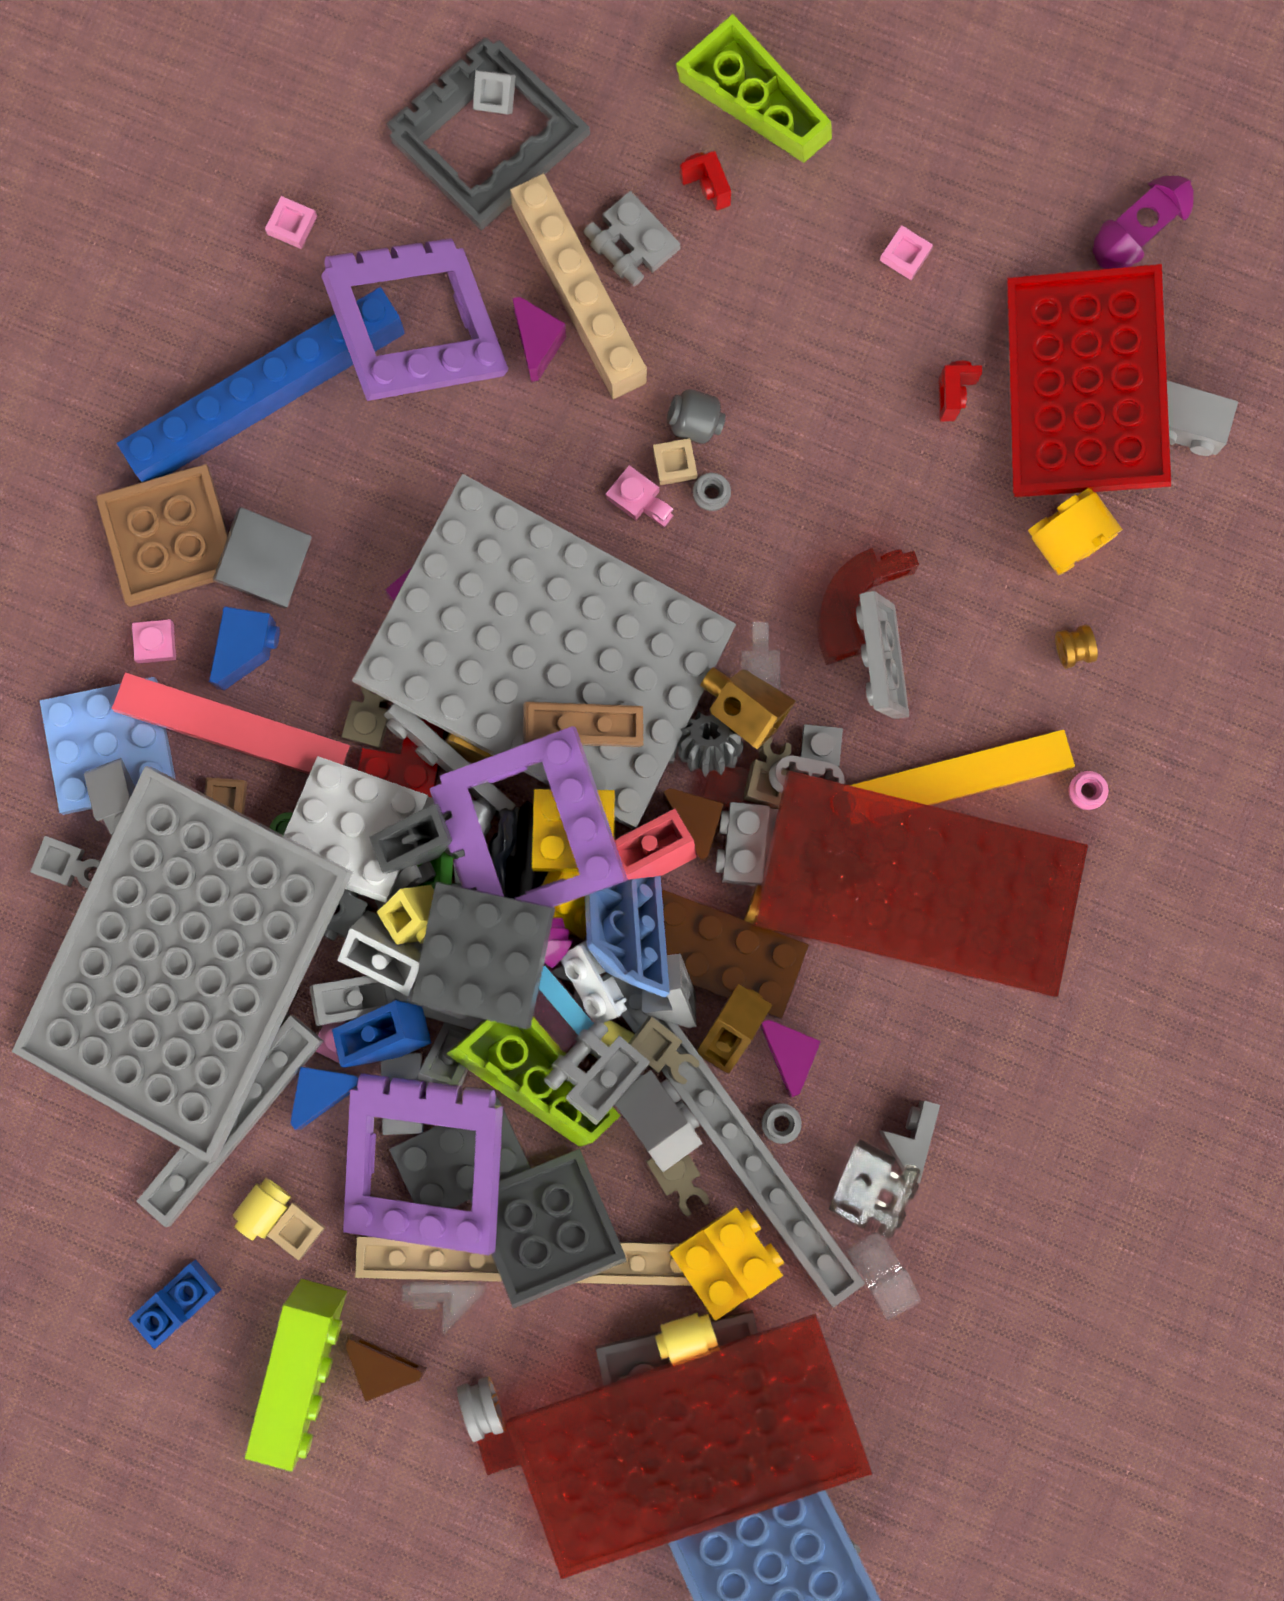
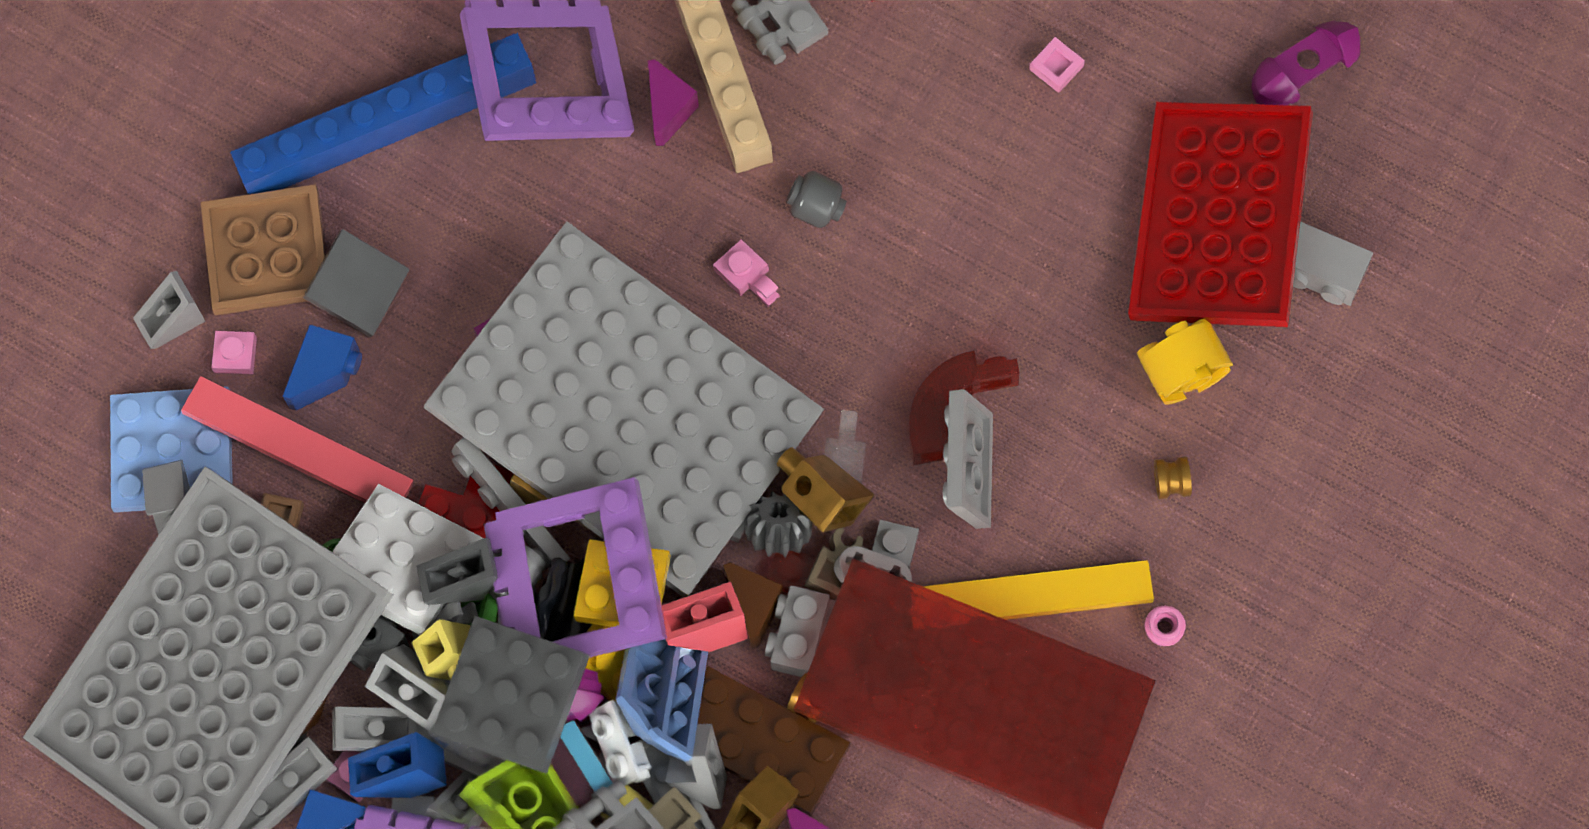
camera: 15 degrees right, 10 degrees down
(62, 863) = (105, 557): light grey plate -> none
(82, 611) = (168, 312): none -> light grey slope
(366, 721) = (434, 457): dark tan plate -> none
(594, 722) = (659, 483): medium nougat tile -> none
(675, 461) = (788, 241): tan plate -> none
(716, 481) = (818, 266): light grey plate -> none
(951, 393) = (1085, 197): red bracket -> none

